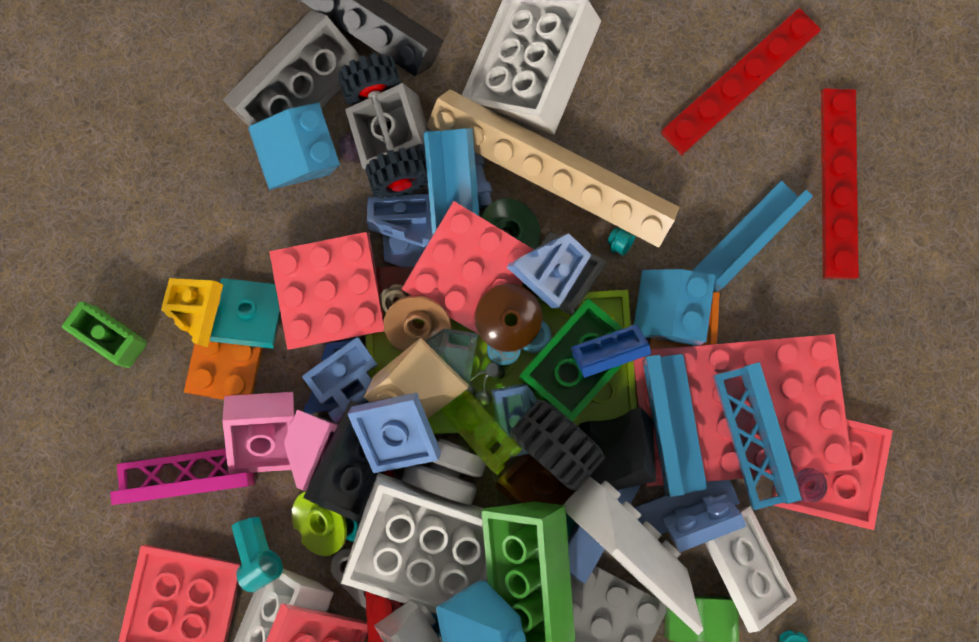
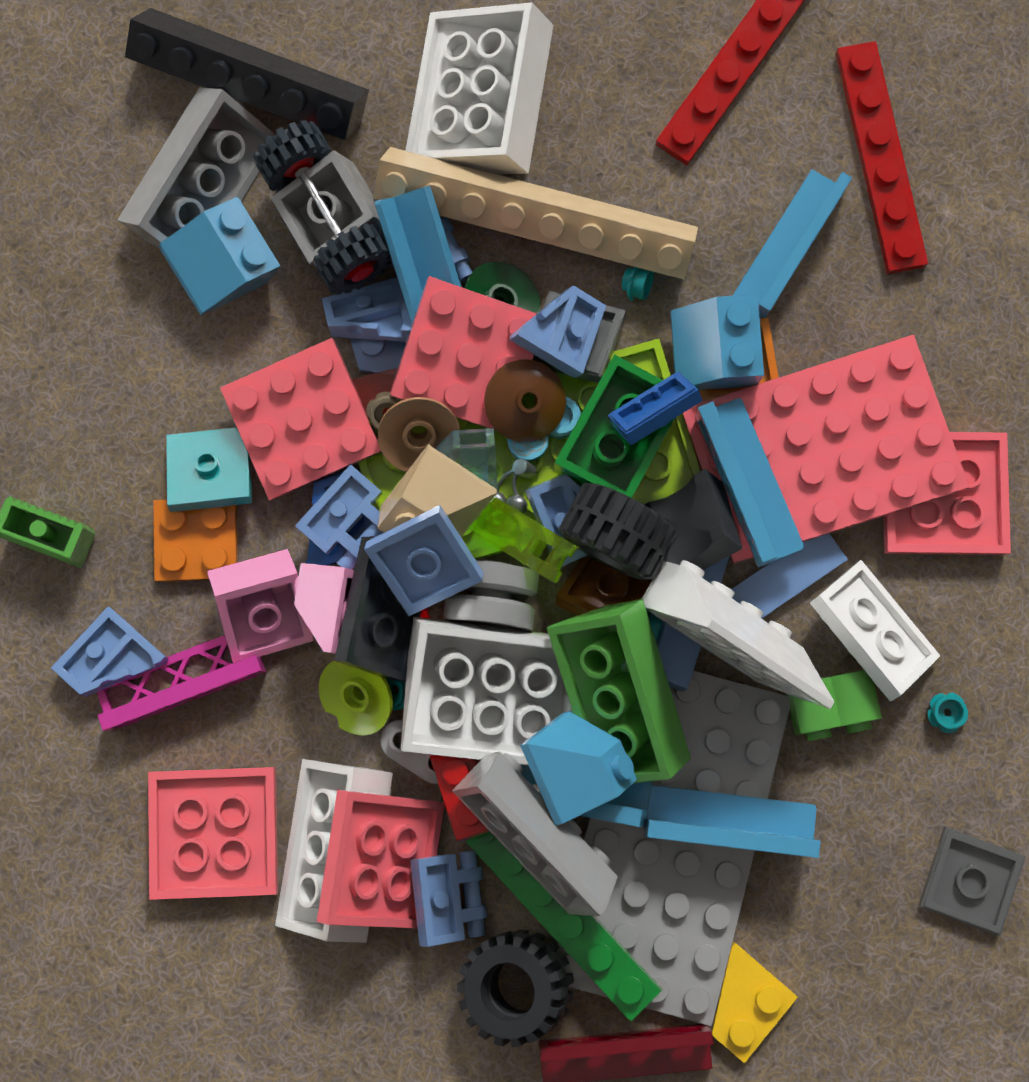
camera: 15 degrees left, 0 degrees up
(131, 443) = (107, 655): none -> medium blue wing
(193, 306) = (142, 473): yellow wing -> none
(259, 563) = (294, 758): teal piece -> none
(348, 148) = (286, 244): plate -> none
(703, 521) = (808, 586): medium blue plate -> none
(769, 433) = (860, 462): dark azure fence -> none
(818, 487) = (931, 524): plate -> none

